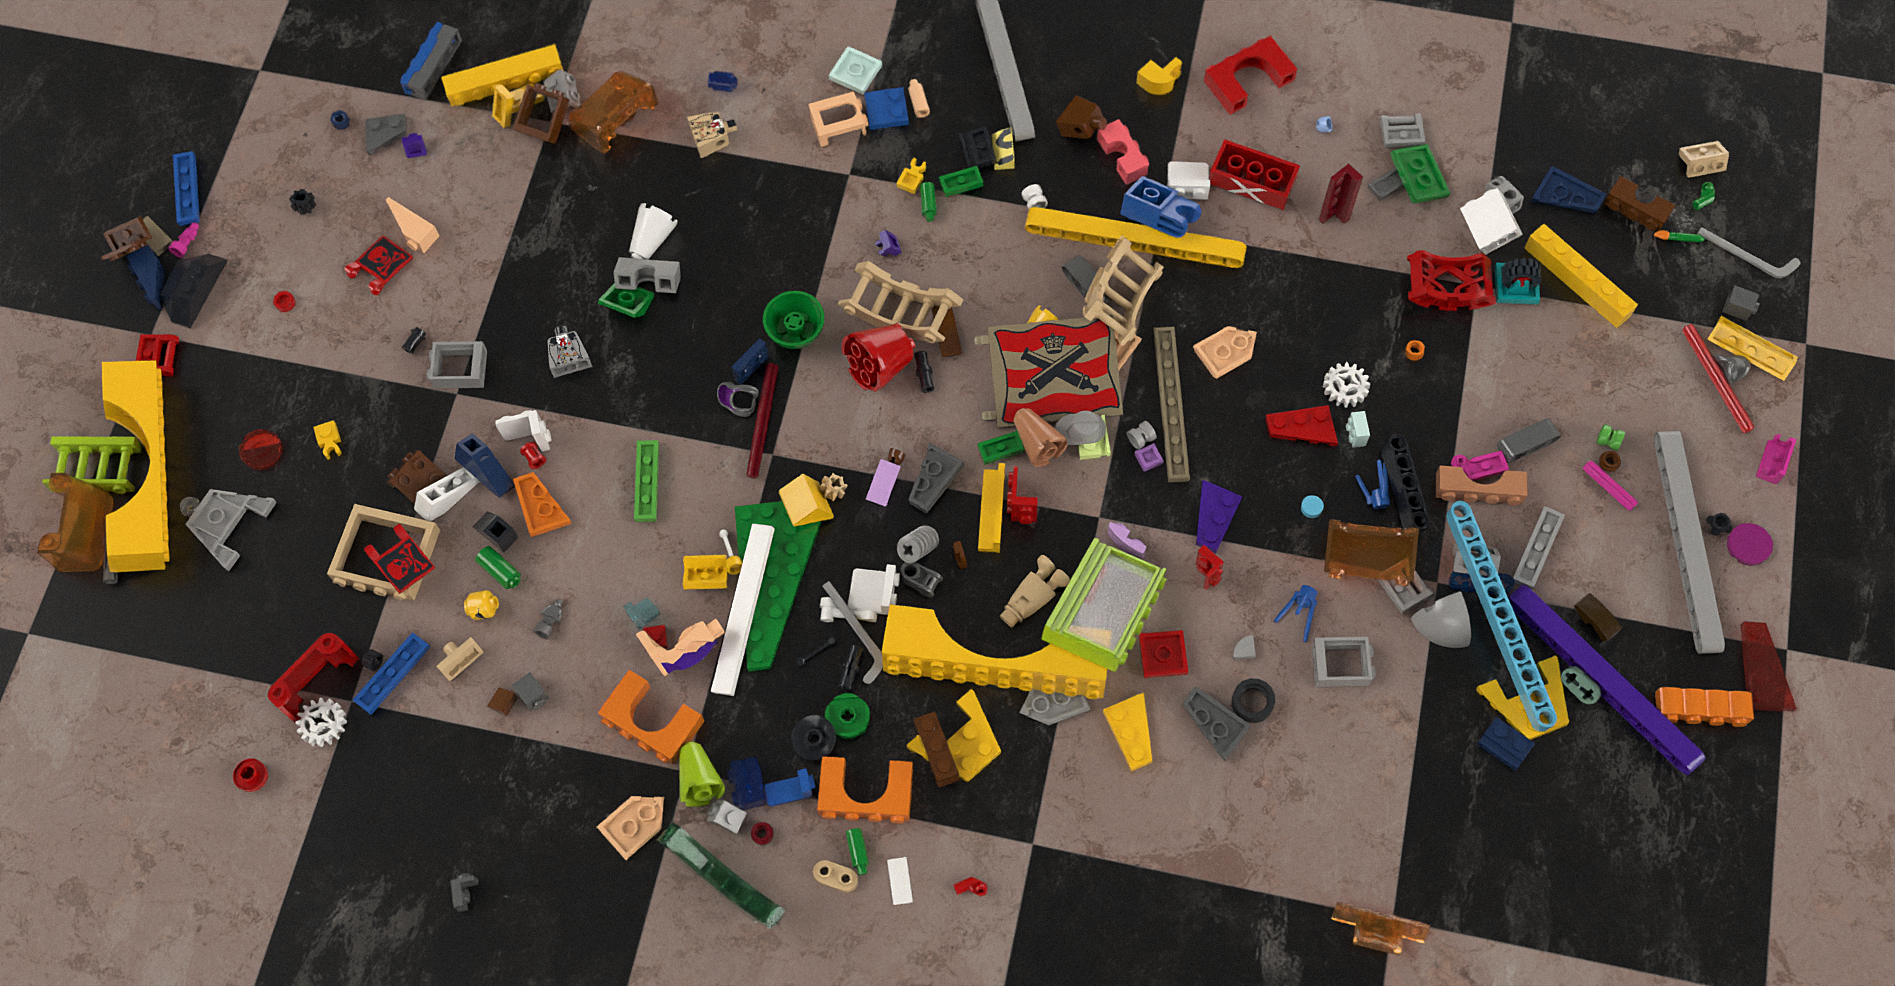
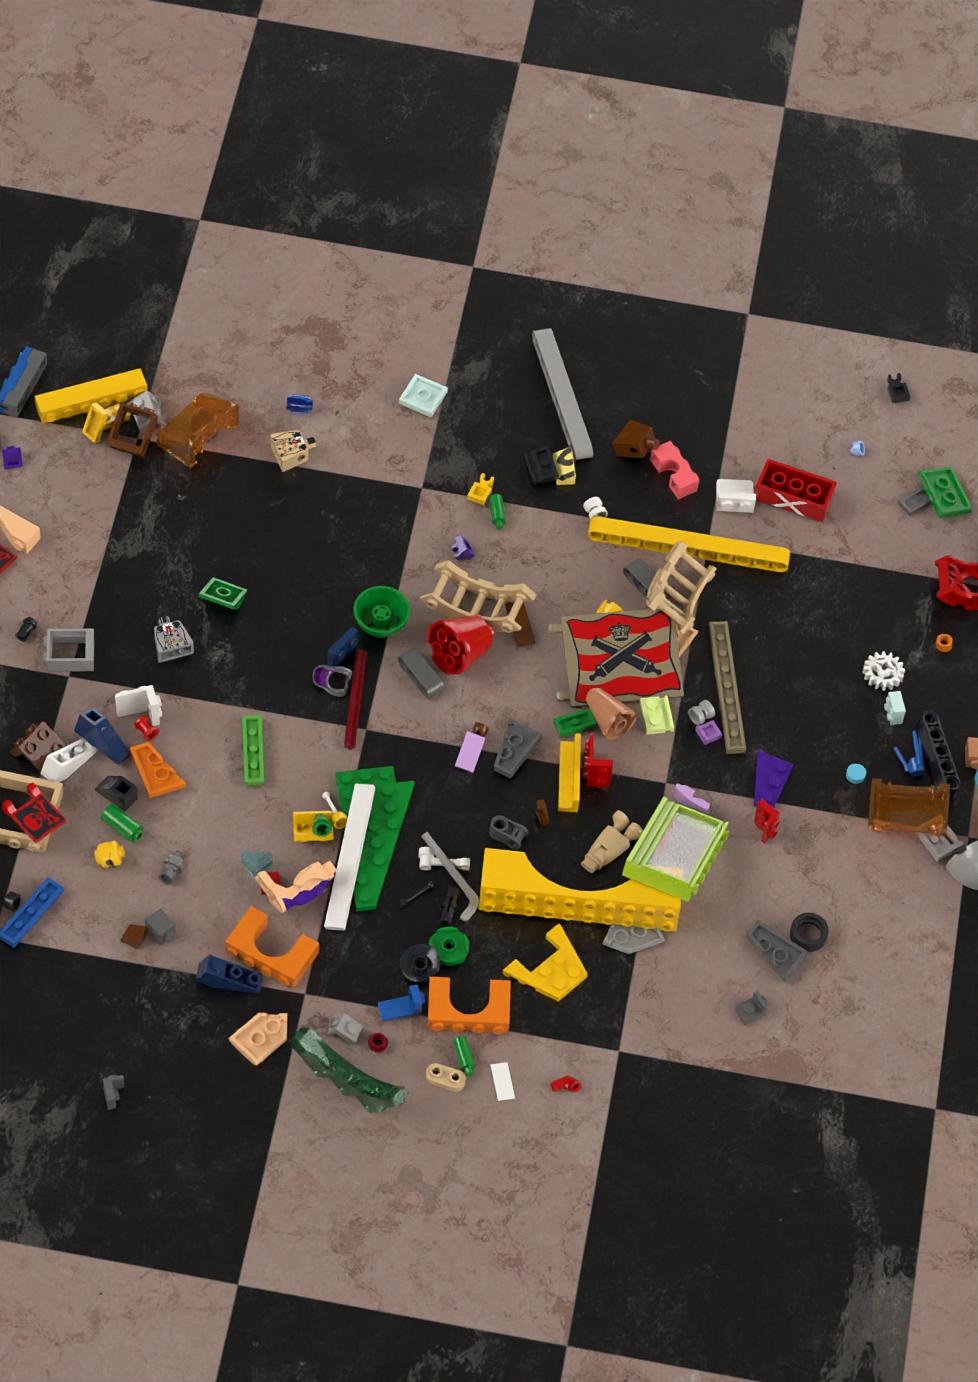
camera: 10 degrees left, 10 degrees down
(458, 657) = (92, 899): tan tile -> none
(601, 751) = (227, 975): none -> dark blue slope
(631, 272) = (230, 569): light grey arch -> none
(650, 231) = (242, 534): white cone -> none
(697, 777) = (319, 995): lime cone -> none
(712, 573) = (321, 825): none -> green cone
(748, 784) = (363, 1001): clear blue brick -> none
(805, 501) = (400, 766): yellow slope -> none
(823, 132) = (395, 449): light nougat panel -> none
(833, 487) = (424, 755): tan gear -> none
(834, 390) = (421, 673): none -> dark grey beam
(873, 590) = (467, 841): white bracket -> none
(886, 108) = (453, 429): blue plate -> none
(917, 544) = (505, 801): light grey piece -> none
(918, 99) = (483, 421): light nougat cylinder -> none
(924, 371) = (501, 658): black pin -> none
(937, 749) = (537, 980): reddish brown arch -> none
(961, 181) = (526, 494): green plate -> none
(1081, 428) = (648, 705): light grey piece -> none
(1131, 730) = (702, 958): yellow wing -> none
(1159, 80) = (705, 407): yellow brick -> none
(1159, 207) = (710, 517): blue brick -> none
(1163, 654) = (728, 894): red plate -> none
(1185, 794) = (752, 1008): none -> dark grey bracket
(1226, 350) = (774, 641): light nougat tile -> none
(1245, 649) = (800, 891): light grey tile -> none
(1263, 55) = (800, 387): red arch -> none
(1304, 424) = (848, 704): red wing -> none
(1305, 598) = (851, 849): blue plant -> none
(1339, 643) = (886, 885): light grey window -> none
(1341, 194) = (874, 507): dark red fence -> none
(1370, 57) = (897, 390): none -> black plate
(1379, 929) = (924, 1113): clear orange bracket -> none
(1402, 135) = (928, 458): light grey plate -> none

